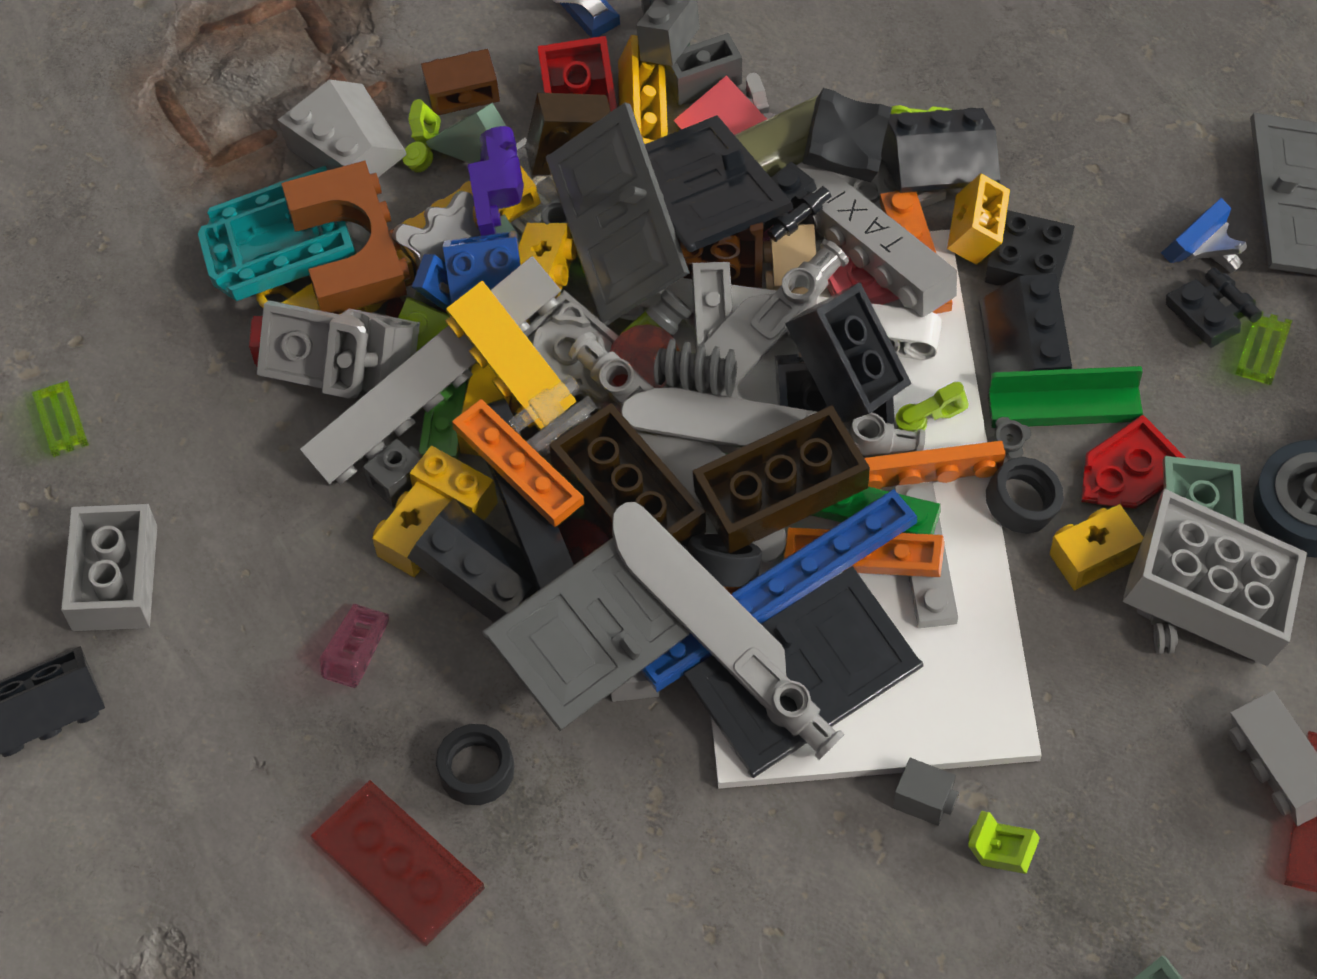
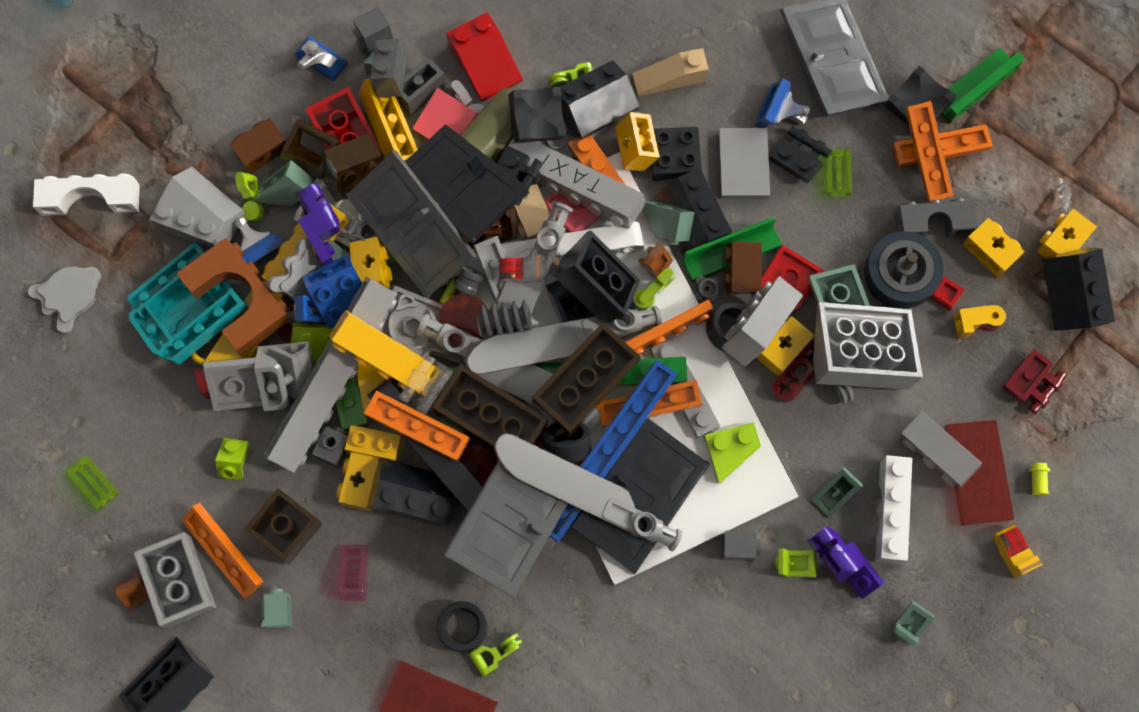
camera: 25 degrees left, 15 degrees up
(46, 566) = (132, 592): none -> dark orange tile
(134, 185) = (68, 294): none -> light grey tile
(175, 64) = (56, 194): none -> white arch
(189, 555) = (222, 551): none -> orange plate
(227, 654) = (276, 609): none -> sand green window
(252, 444) = (231, 458): none -> lime bracket
(285, 546) = (283, 526): none -> dark brown brick
(403, 193) = (256, 243): none -> piece
(503, 94) = (303, 157): none -> dark brown tile
(533, 812) = (511, 646): none -> lime piece
(747, 313) = (522, 269): none -> leg
(805, 53) = (483, 56): none -> red slope
(947, 370) = (656, 260): none -> dark orange tile
(964, 654) = (731, 448): none -> lime wing
(986, 332) = (669, 221): none -> sand green slope
(1067, 486) = (761, 320): none -> light grey brick
(1070, 152) = (671, 73): none -> tan slope
(1072, 421) = (743, 267): none -> reddish brown brick
(1079, 864) = (845, 561): none -> dark purple plate
(1101, 601) = (801, 381): none -> dark red beam
(1103, 766) = (837, 492): none -> sand green slope
(1126, 296) = (744, 163): none -> light grey tile
(1180, 820) = (894, 525): none -> white arch

